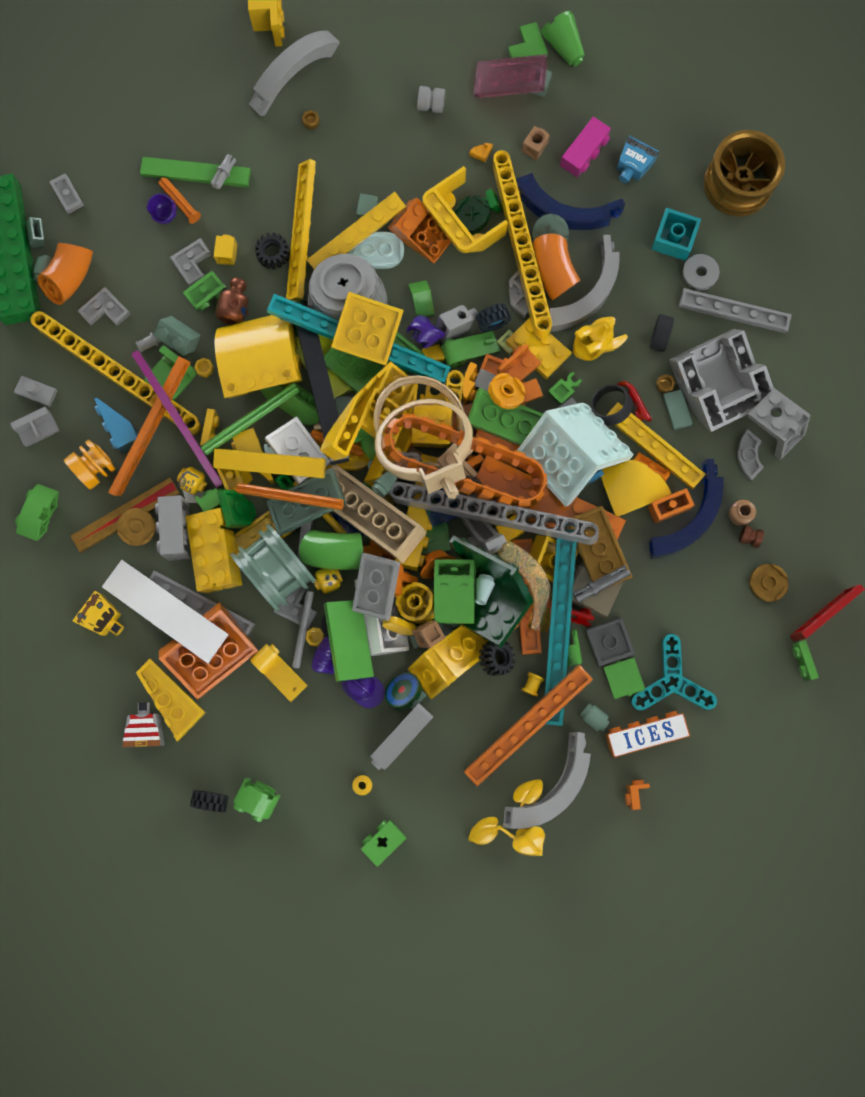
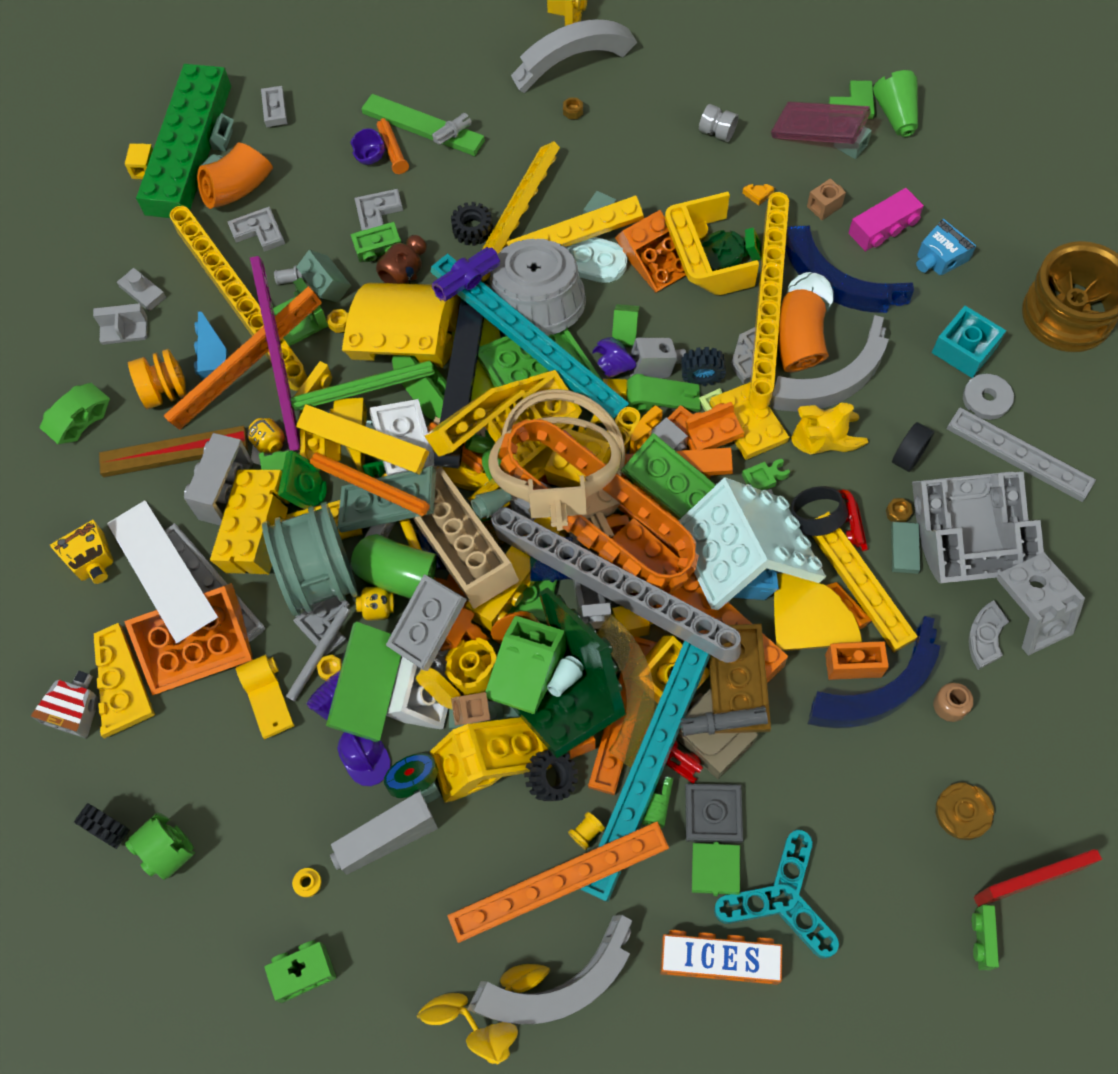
camera: 25 degrees right, 15 degrees down
(136, 526) = (175, 466): pearl gold tile -> none
(225, 250) = (419, 207): yellow brick -> none
(296, 308) = (466, 274): none -> dark purple piece
(367, 328) = (540, 322): yellow plate -> none
(500, 397) = (679, 456): light orange tile -> none
(595, 717) = (655, 907): sand green brick -> none
(632, 798) = (668, 1042): orange bracket -> none
(751, 536) = (957, 738): copper wheel -> none

